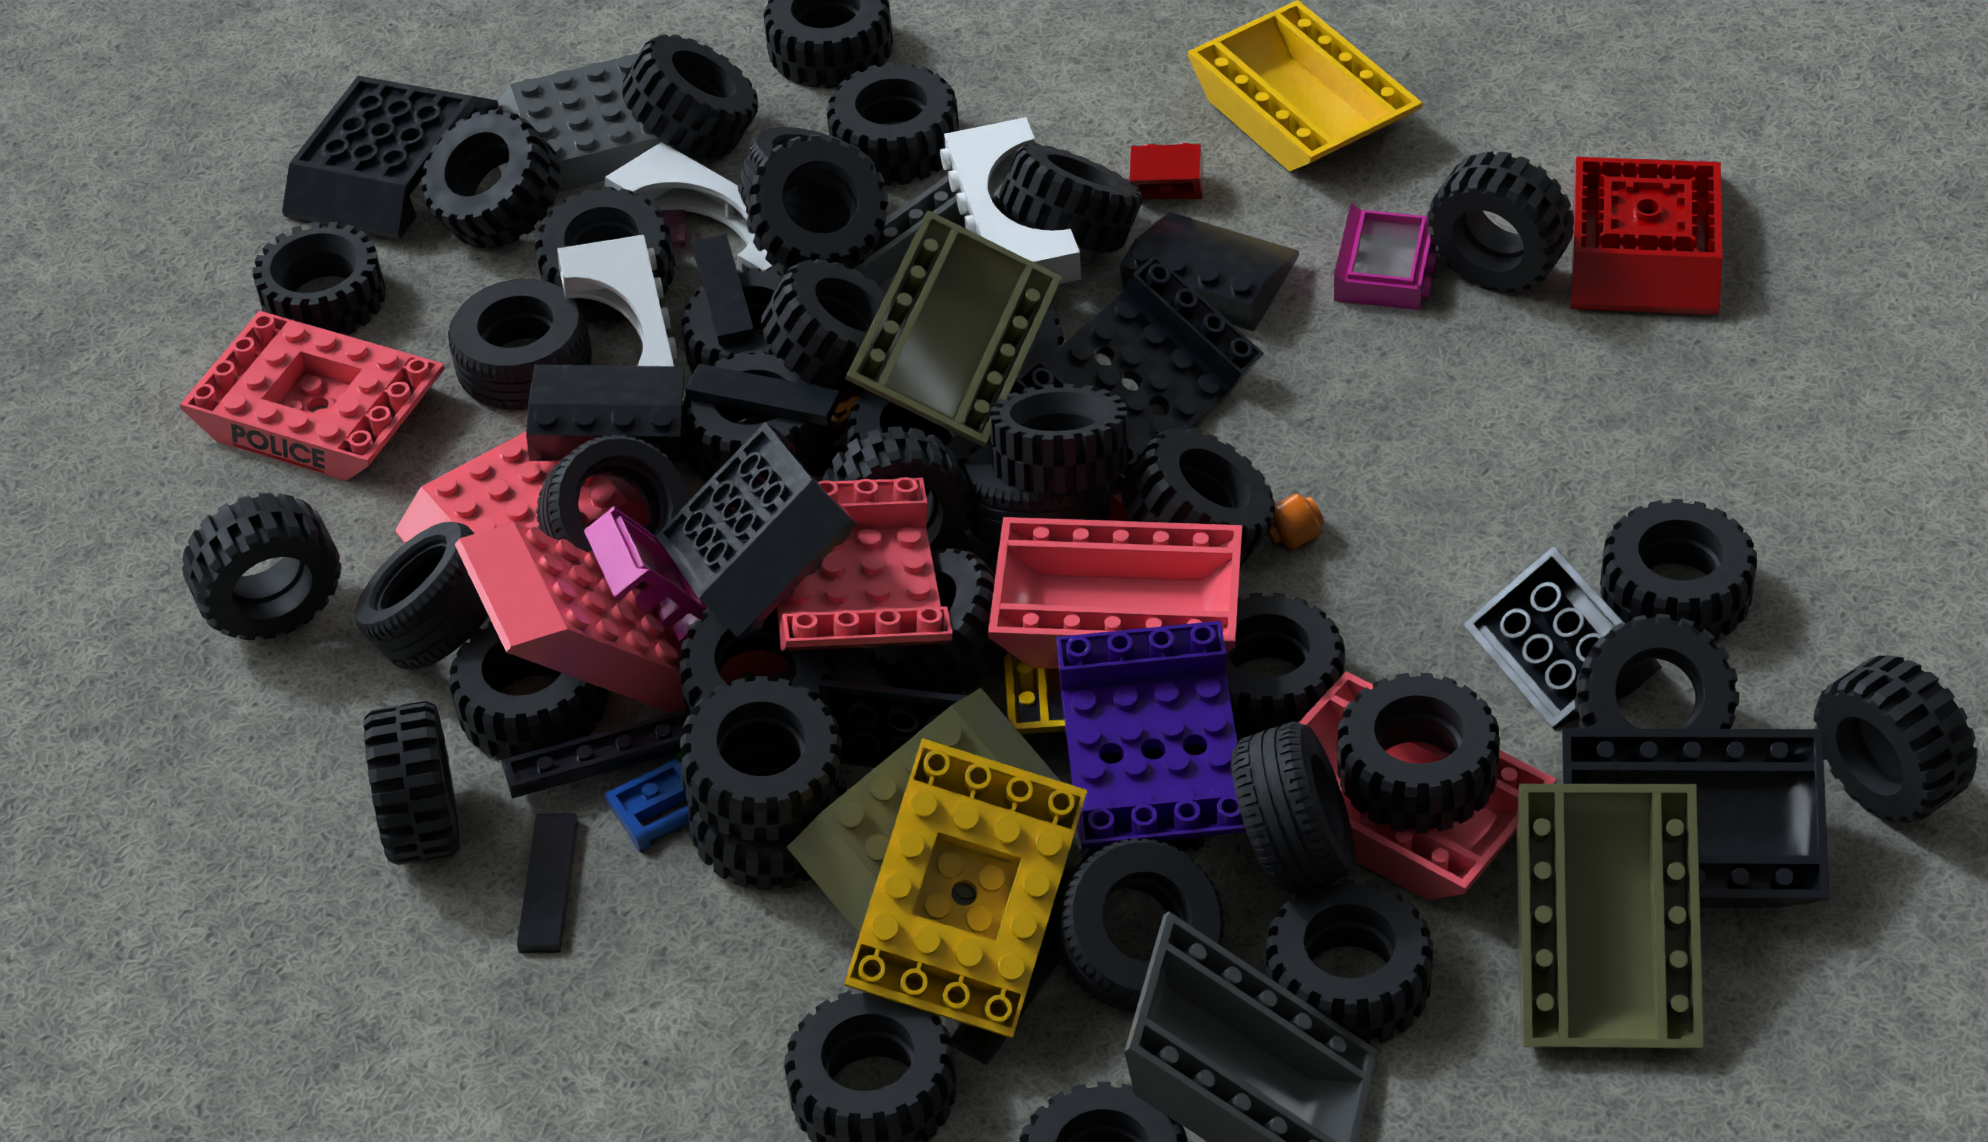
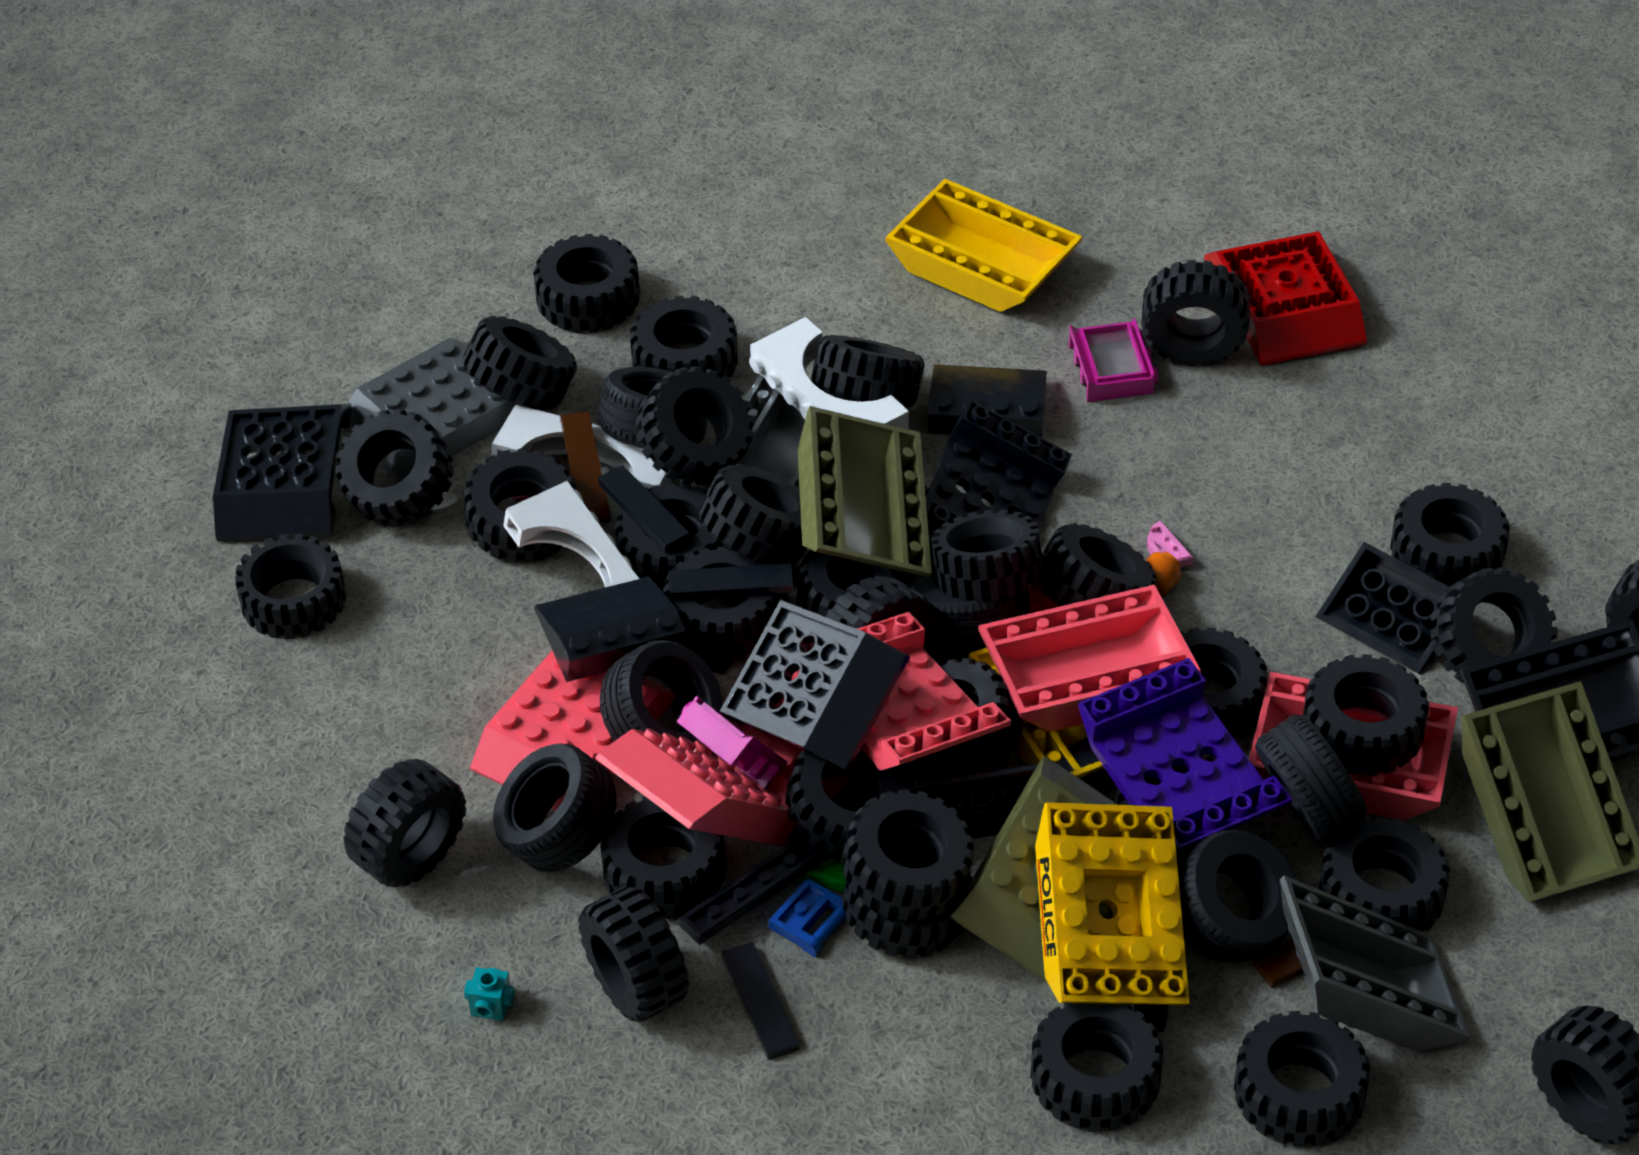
camera: 25 degrees left, 0 degrees up
(258, 783) = (489, 993): none -> teal brick
(282, 369) = (305, 664): coral slope -> none
(511, 313) = (489, 621): black tyre -> none
(701, 221) = (585, 462): none -> reddish brown tile
(1167, 171) = (916, 332): red brick -> none
(1326, 491) = (1162, 540): none -> bright pink plate

